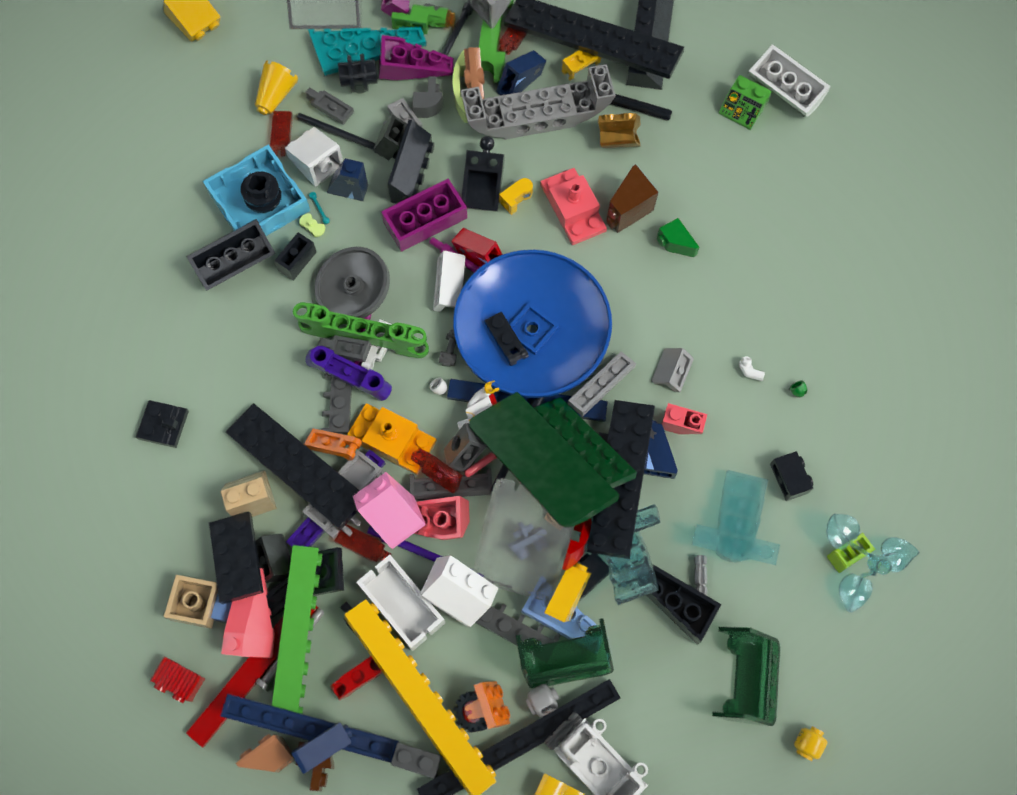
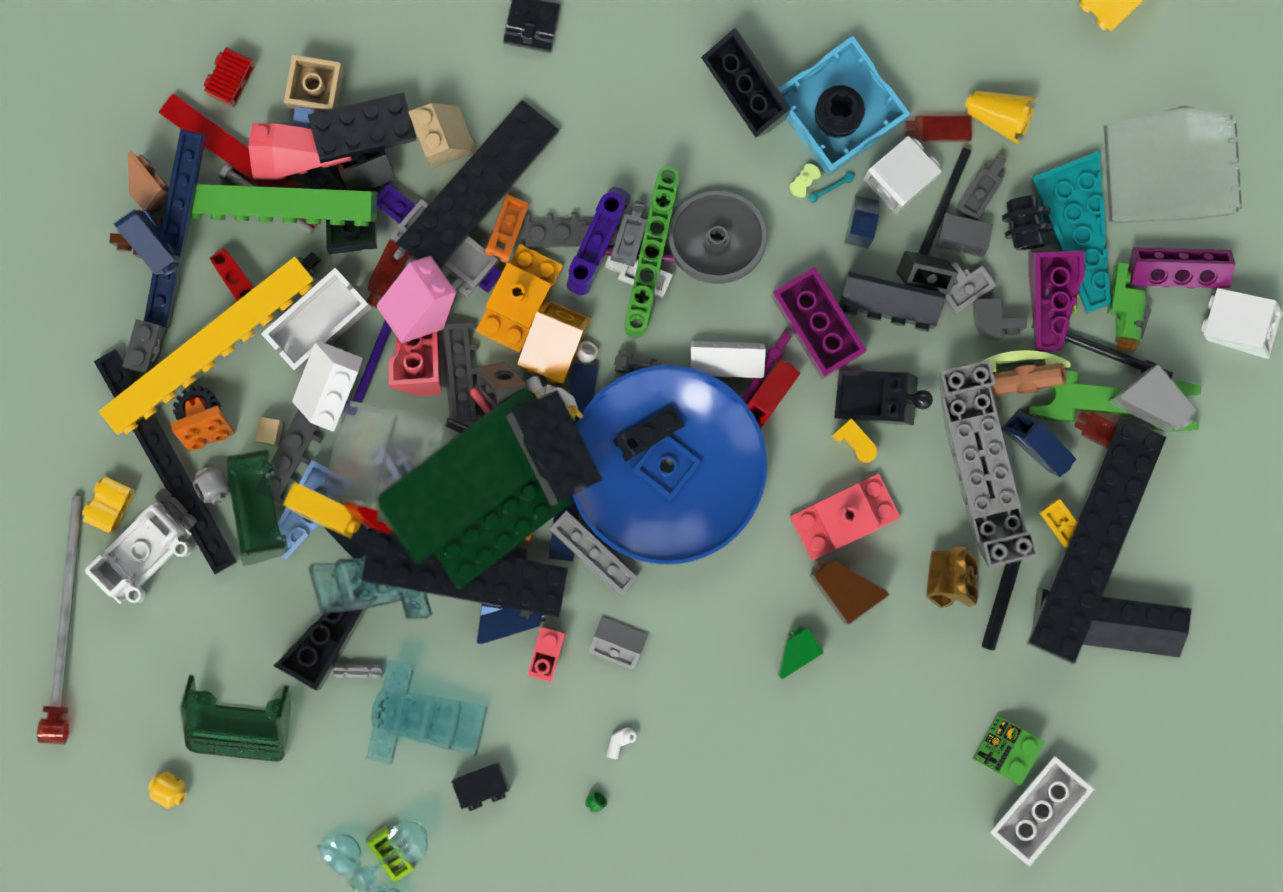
camera: 90 degrees right, 15 degrees up
(295, 256) = (753, 163): black brick -> none
(364, 117) = (964, 235): none -> dark grey hinge
(431, 408) = (553, 341): none -> slope
(437, 470) = (474, 353): clear red hinge -> none
(495, 648) = (269, 431): none -> tan brick
(519, 398) = (554, 447): none -> black piece

